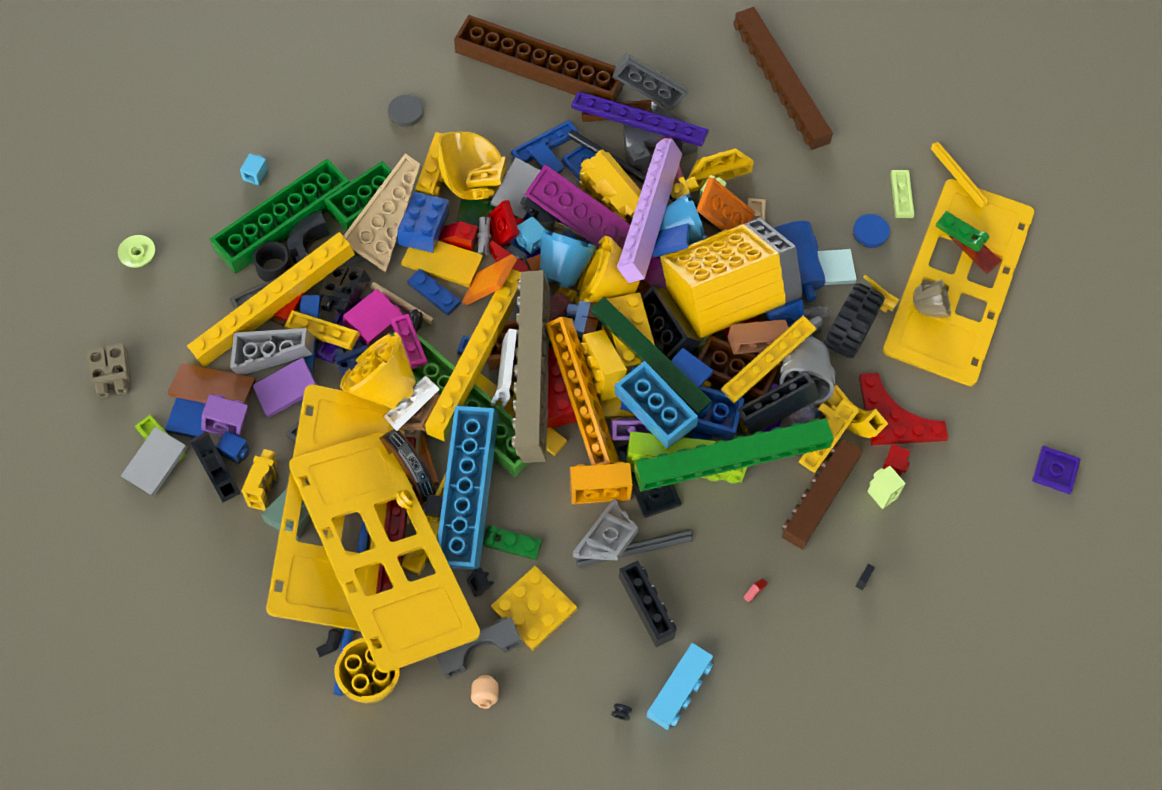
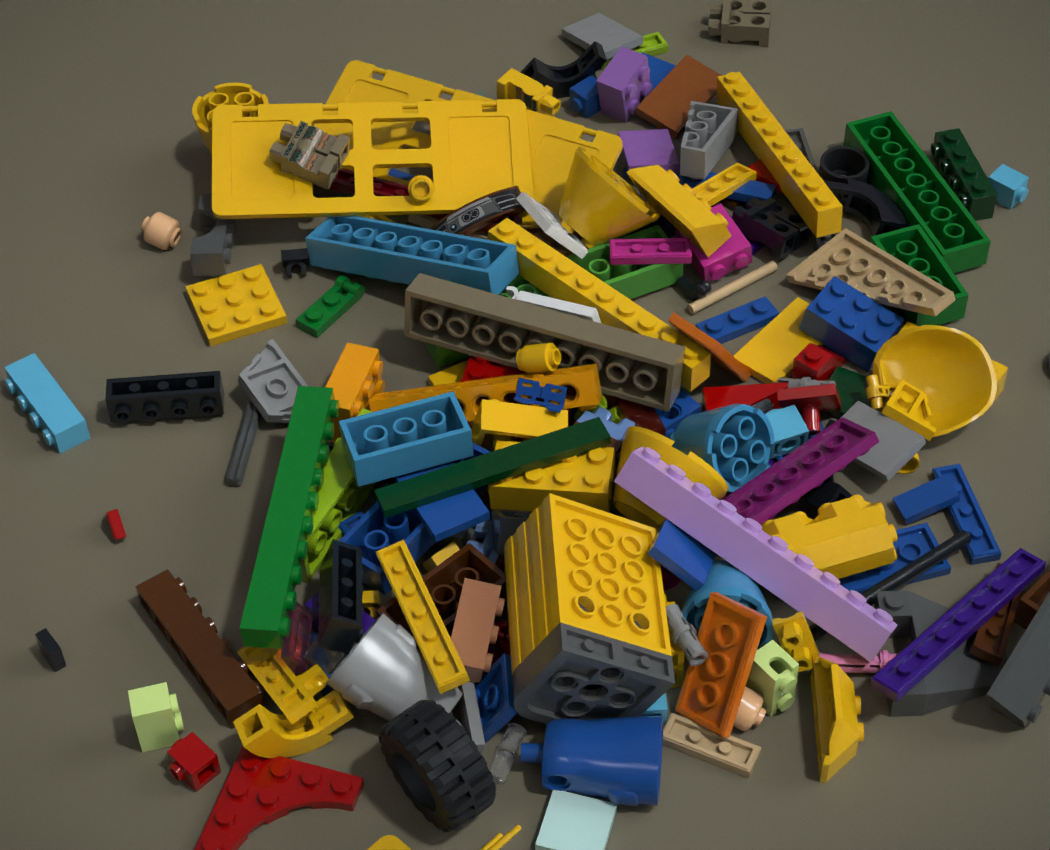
camera: 115 degrees right, 15 degrees down
(134, 245) = (907, 65): yellowish green dish -> none
(249, 194) = (963, 173): none -> dark green brick
(366, 329) = (681, 208): none -> yellow slope
(402, 586) = (310, 153): none -> dark tan hips
(554, 357) = (538, 358): none -> yellow brick
(584, 343) = (546, 394): none -> blue piece
(621, 711) = (56, 341): black bush -> none
(723, 225) = (685, 636): none -> light grey pin

